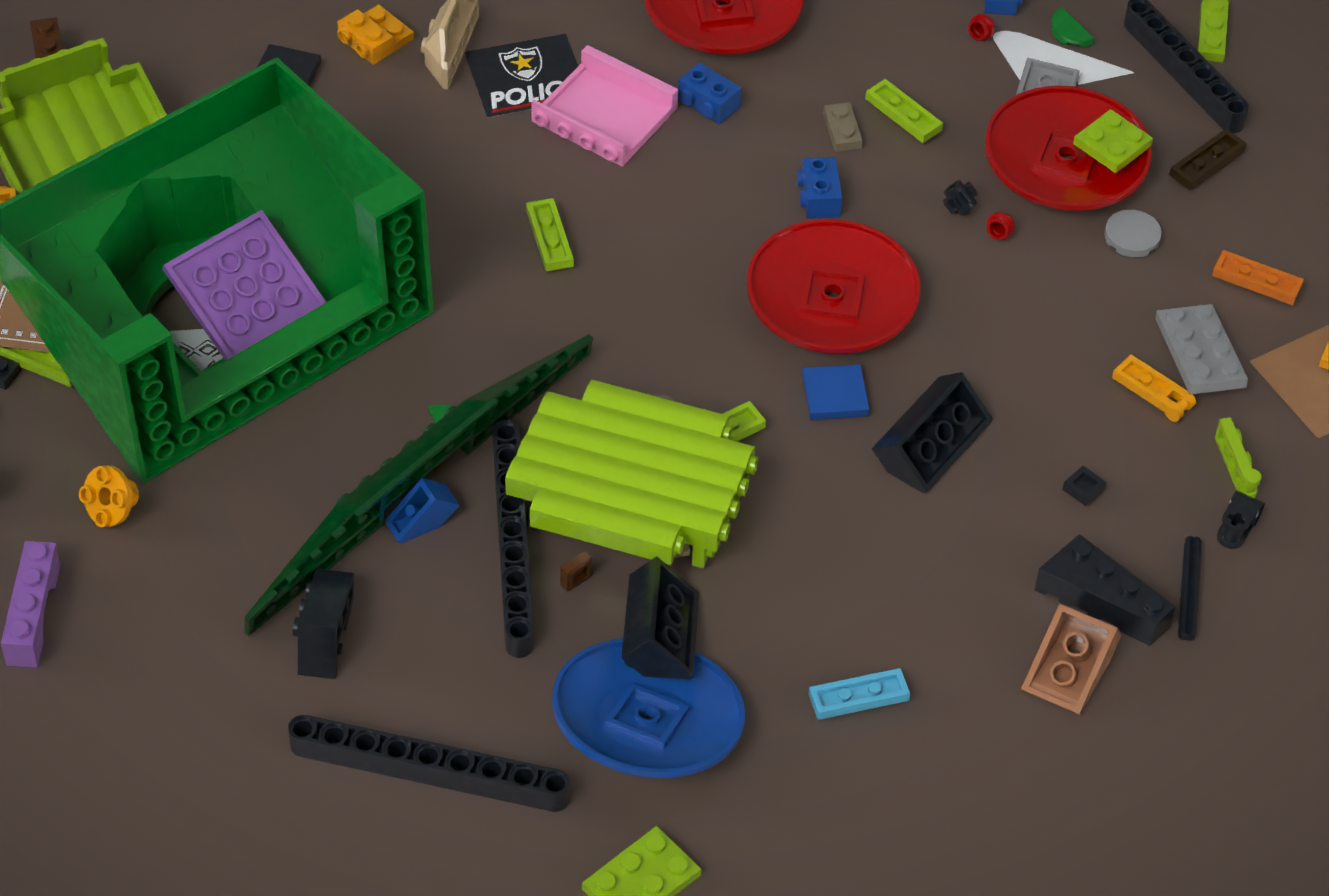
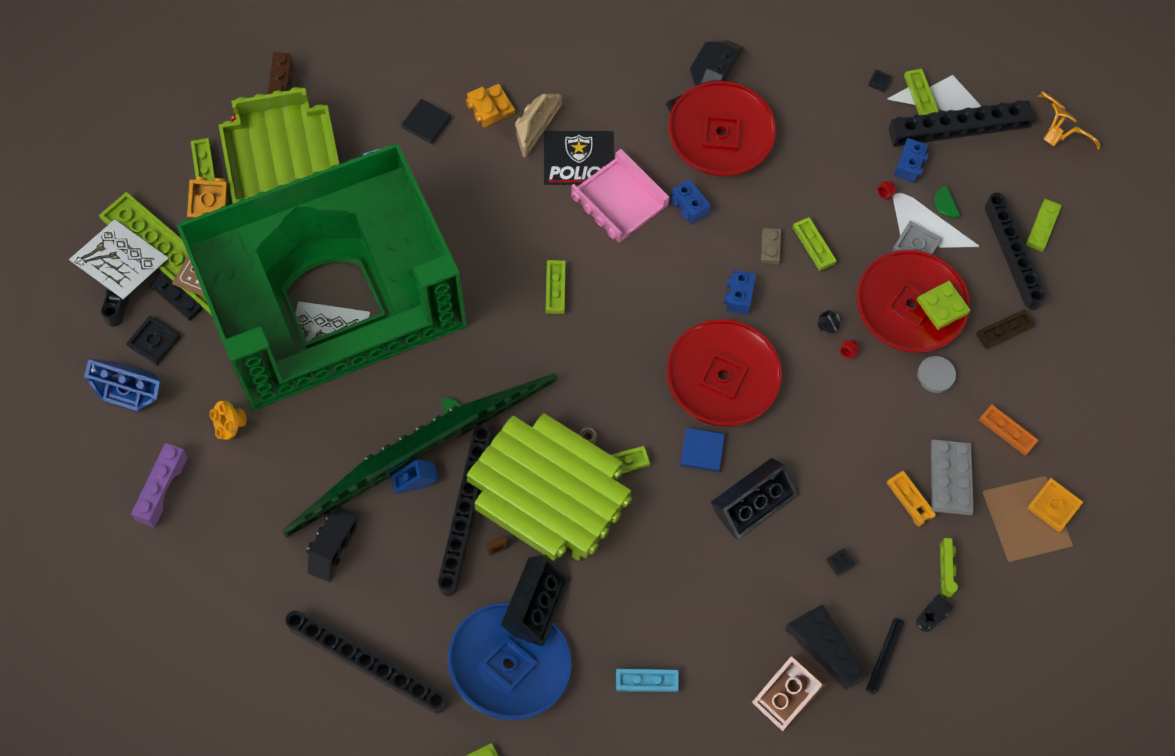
camera: 15 degrees right, 15 degrees up
(243, 284) = (345, 292): medium lavender plate -> none

